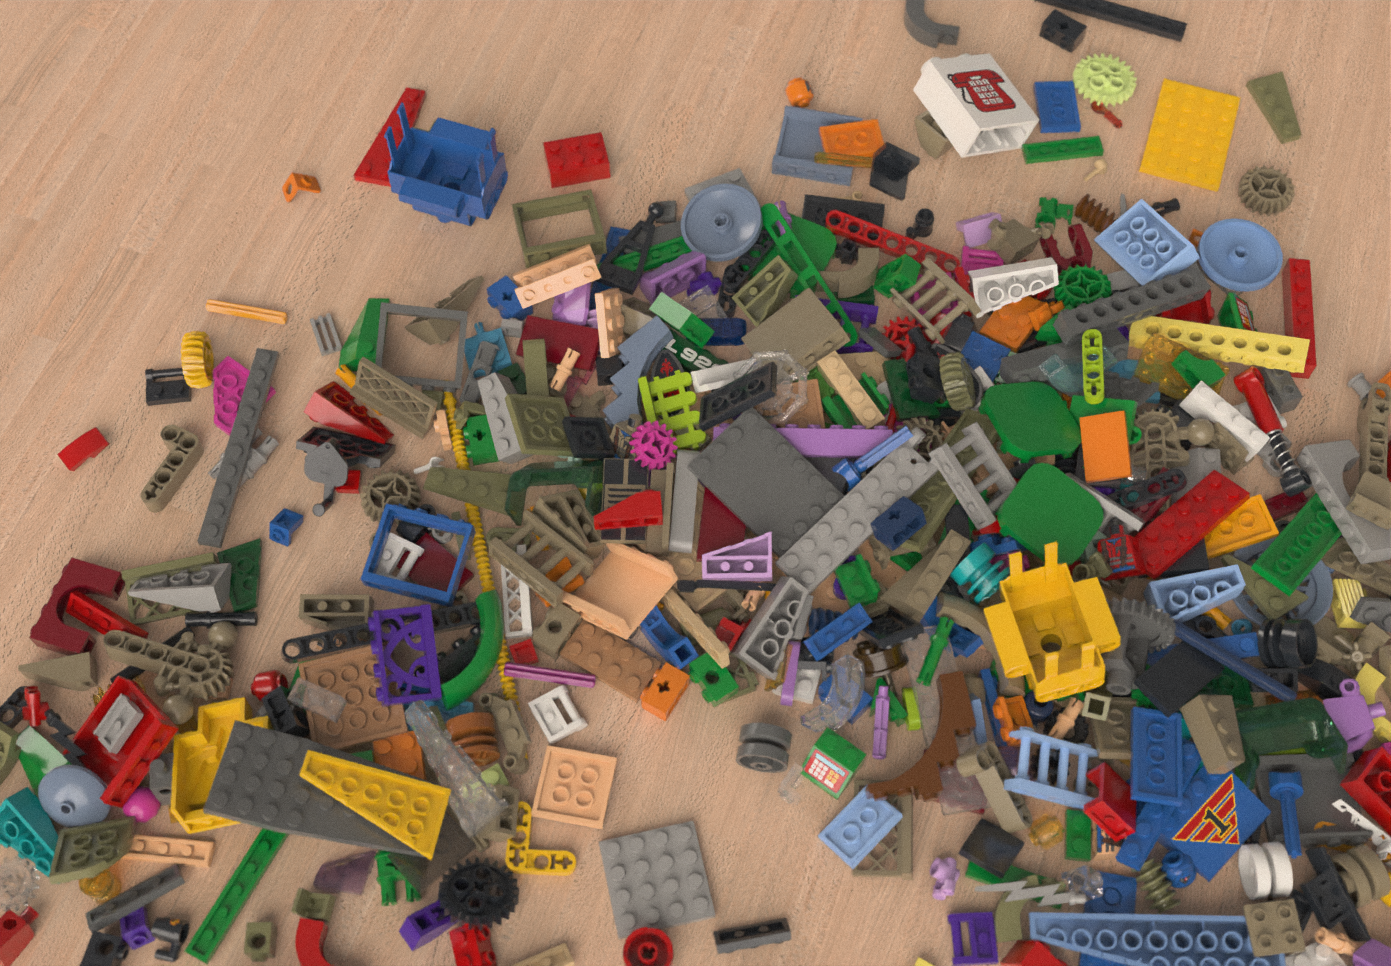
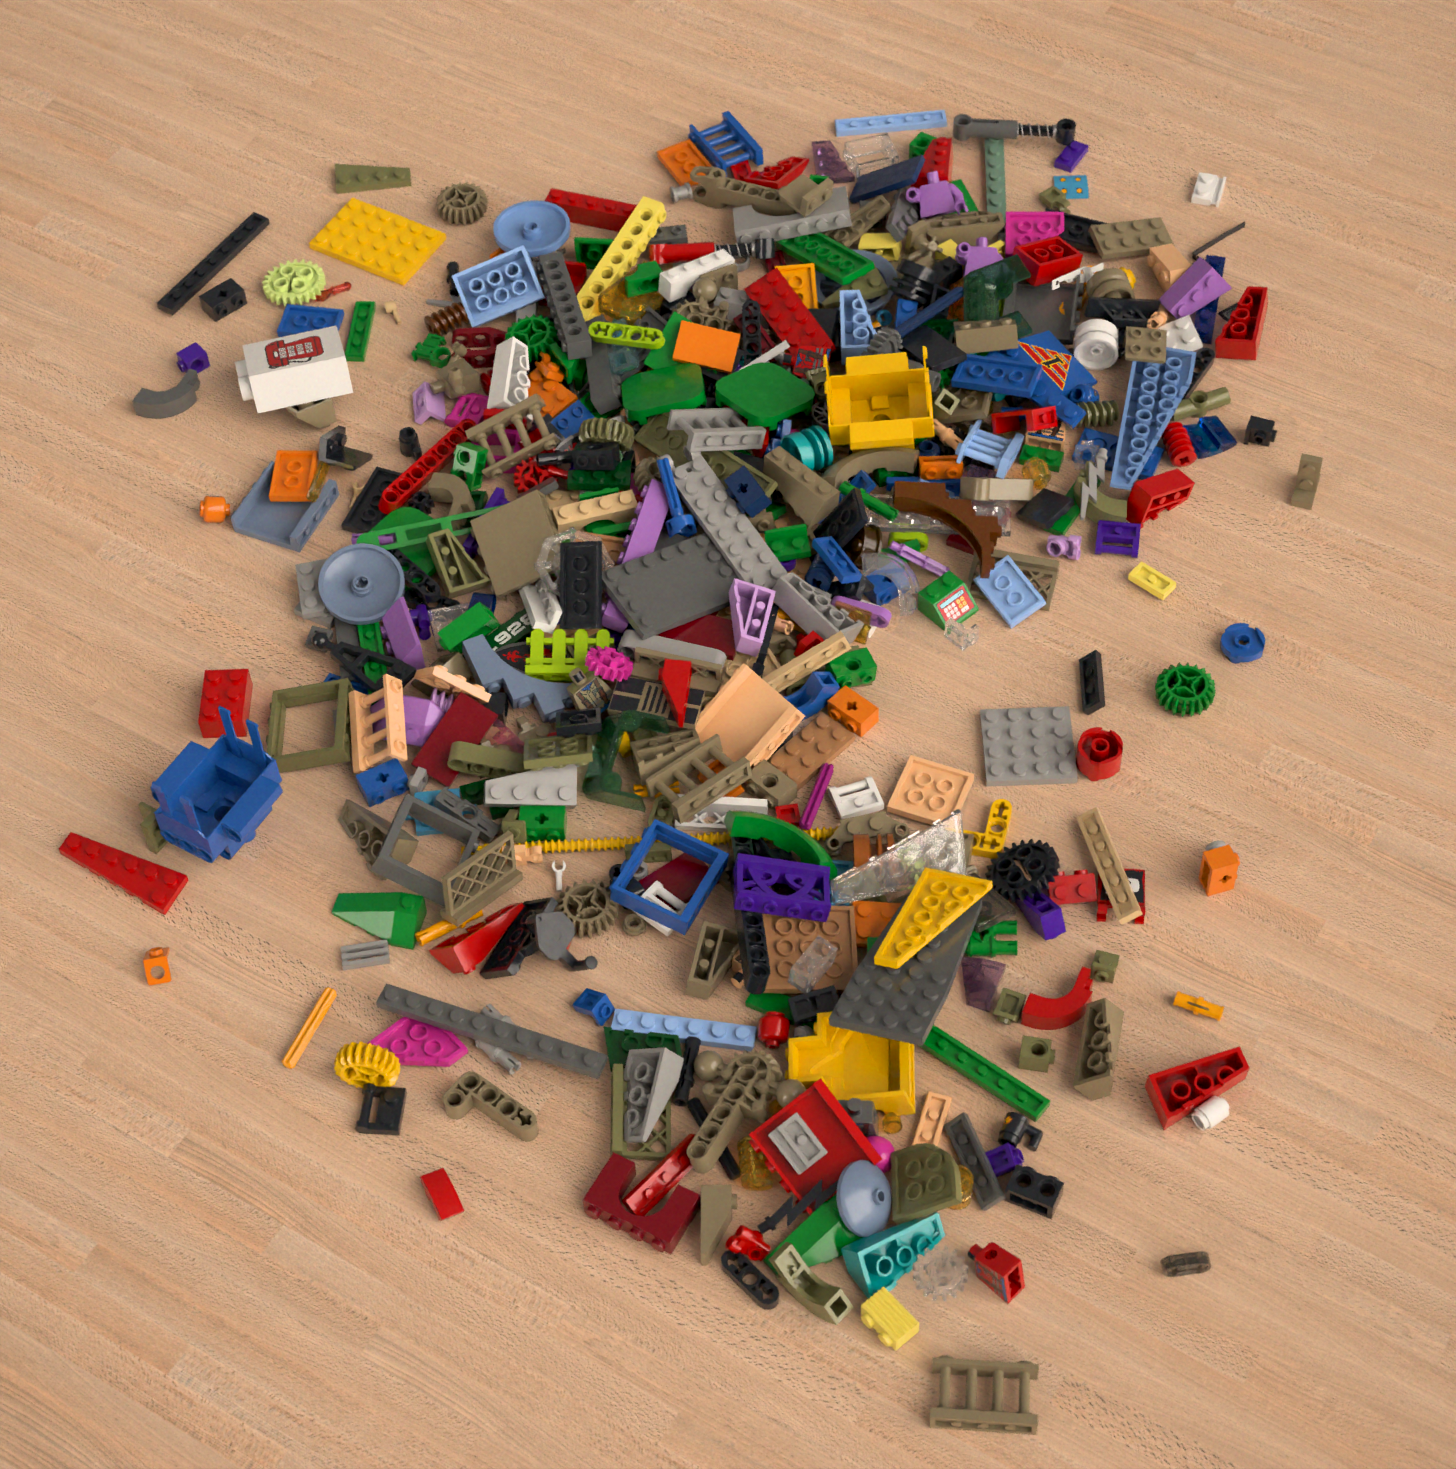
camera: 75 degrees left, 10 degrees down
(268, 608) = (709, 1032): none -> light blue plate
(473, 487) = (600, 829): olive wing -> none
(564, 370) = (489, 734): light nougat pin -> none
(764, 747) = (927, 641): dark grey wheel -> none
(978, 28) = (193, 358): none -> dark purple brick
(1286, 789) = (1034, 317): blue piece -> none

